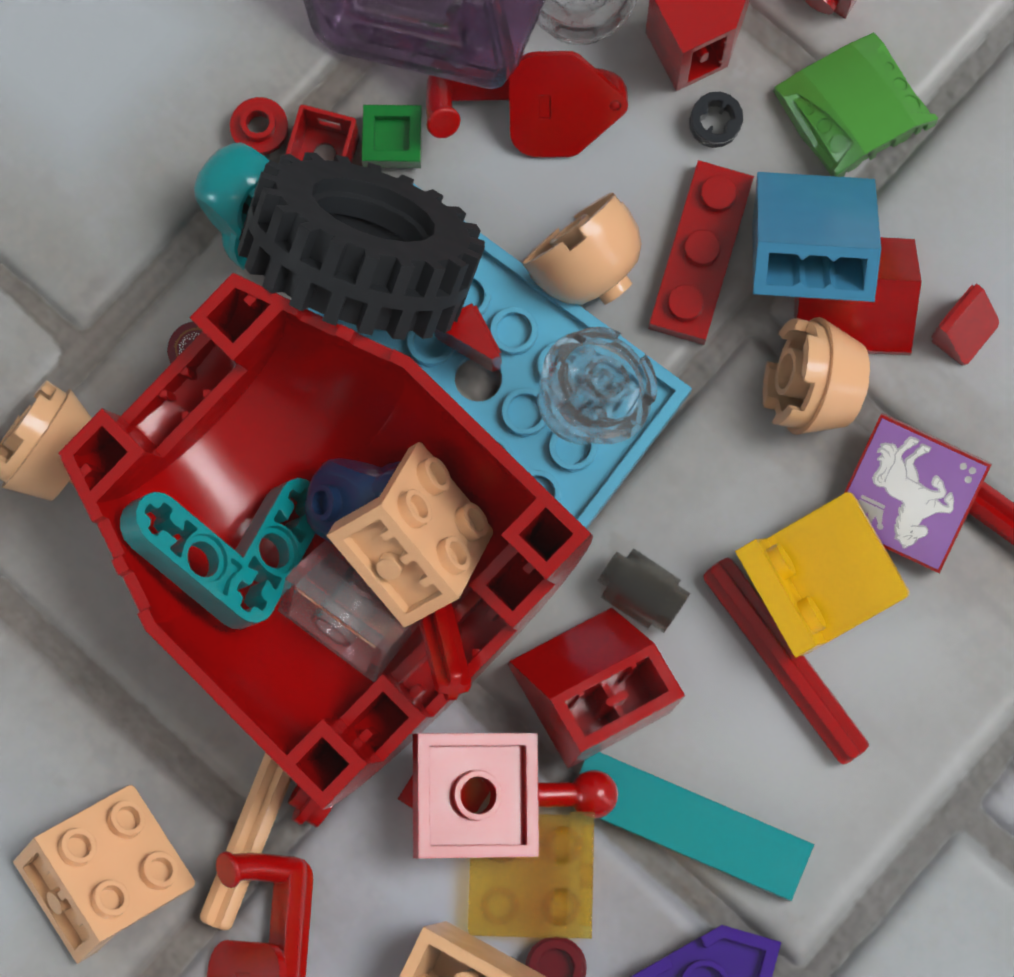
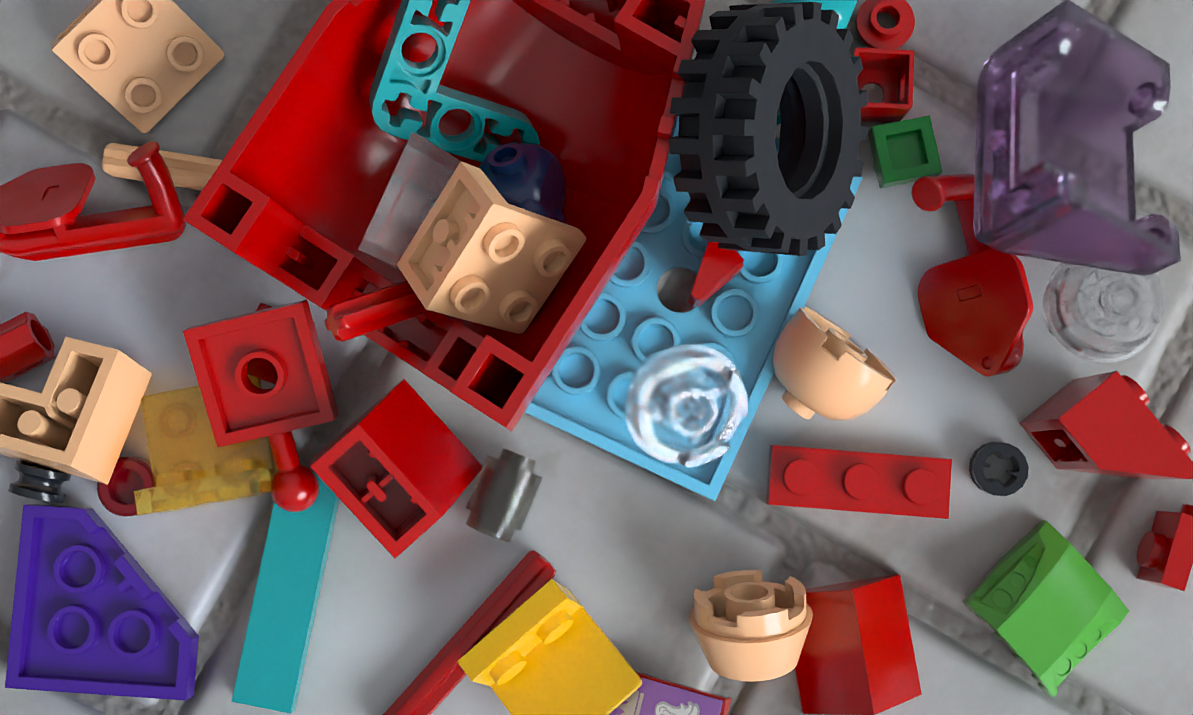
camera: 80 degrees right, 5 degrees up
(815, 237) = (895, 597): dark azure brick -> none

